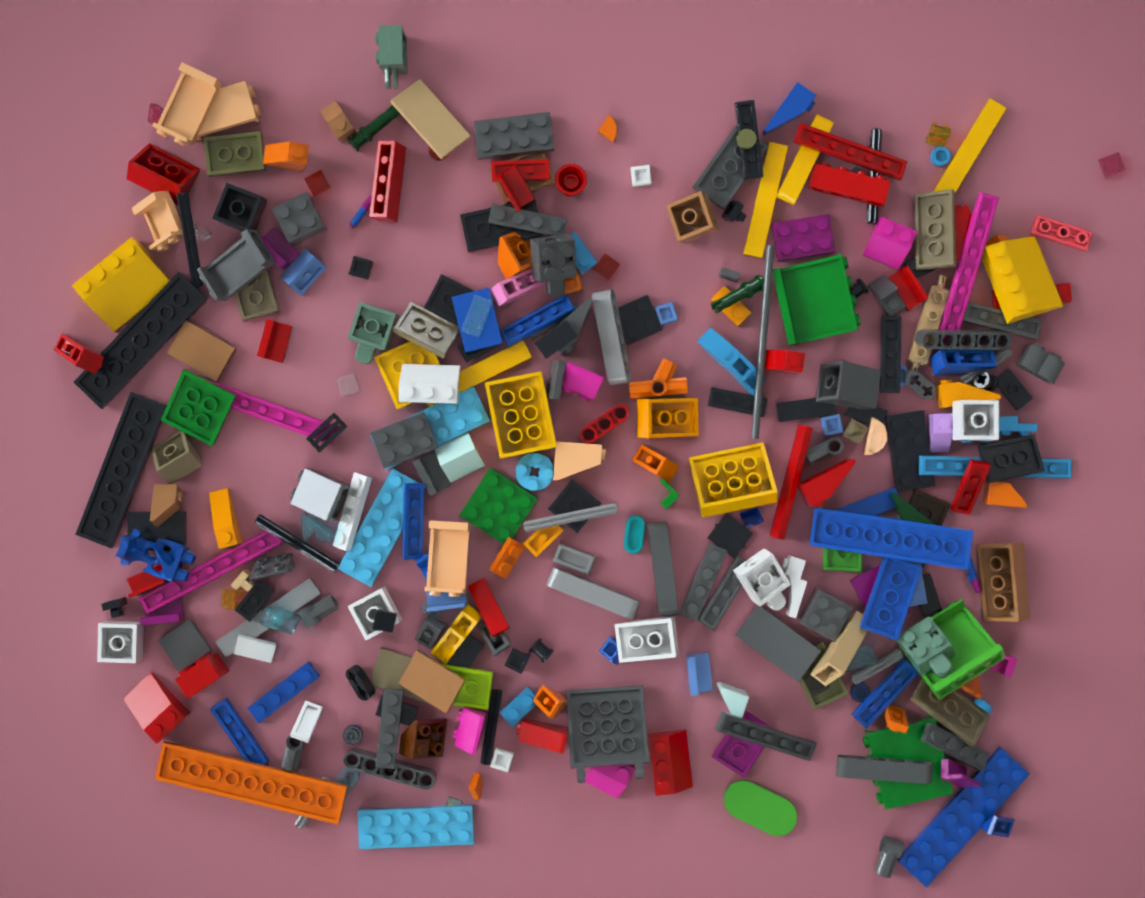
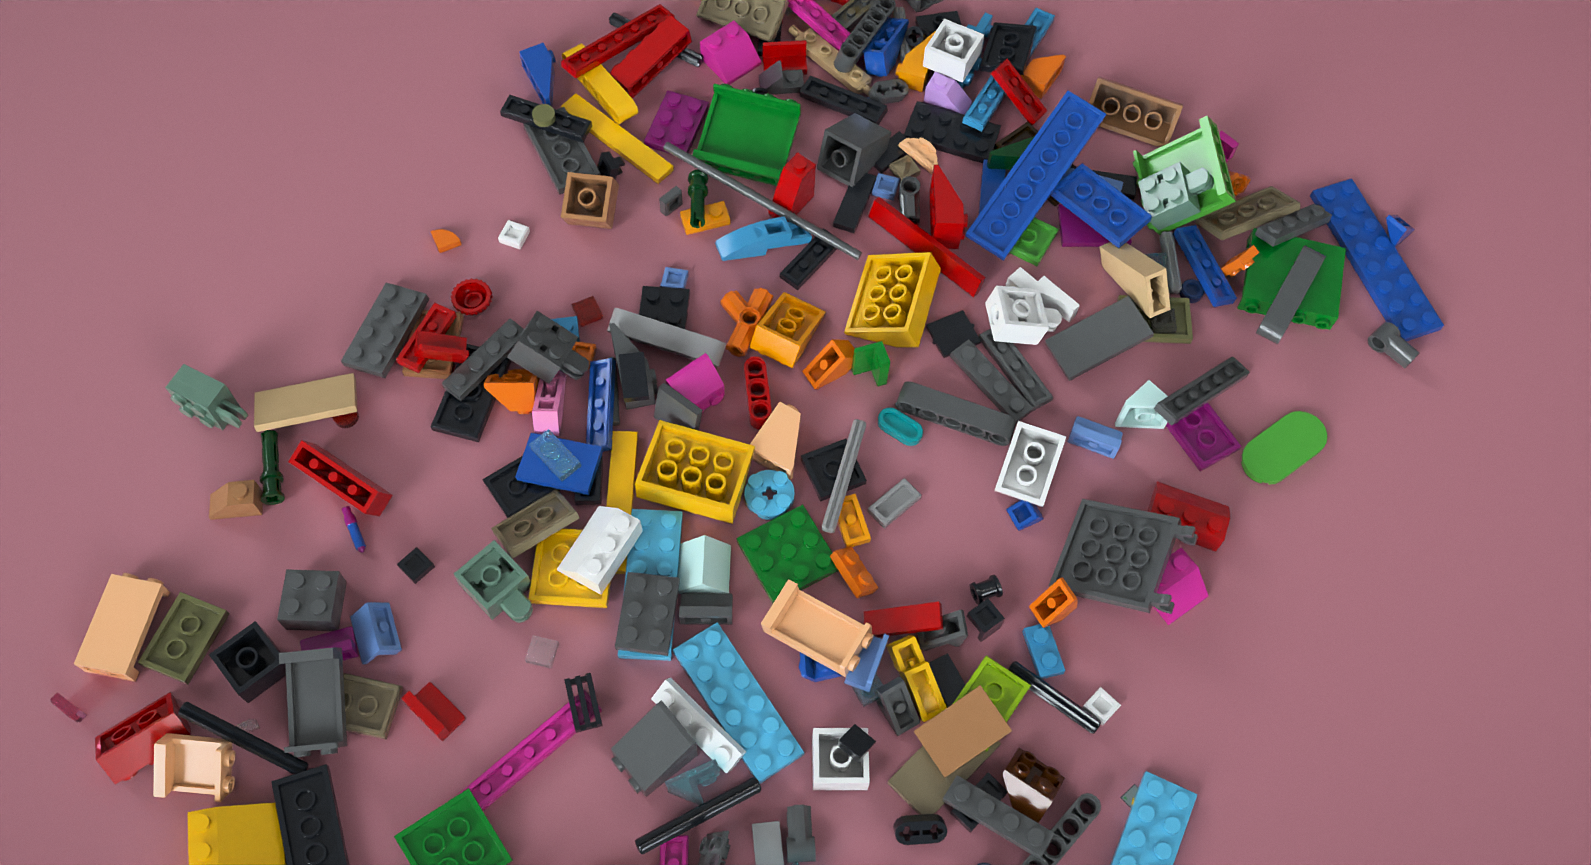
camera: 60 degrees left, 25 degrees down
(188, 105) = (86, 651): light nougat panel -> none
(201, 350) = (385, 810): medium nougat tile -> none
(286, 155) = (231, 567): orange slope -> none
(317, 183) = (285, 559): clear red tile -> none
(413, 521) = (750, 653): blue plate -> none
(470, 729) = (1045, 716): dark pink slope -> none
(476, 786) = (1122, 753): orange tile -> none
(542, 735) = (1092, 634): red slope -> none
(593, 593) = (945, 499): light grey beam -> none
(751, 518) = (944, 301): clear blue slope -> none
(824, 614) = (1089, 279): dark grey brick -> none
(956, 774) = (1332, 234): magenta panel -> none
(972, 577) = (1112, 137): piece -> none
(983, 705) = (1258, 183): dark azure tile -> none

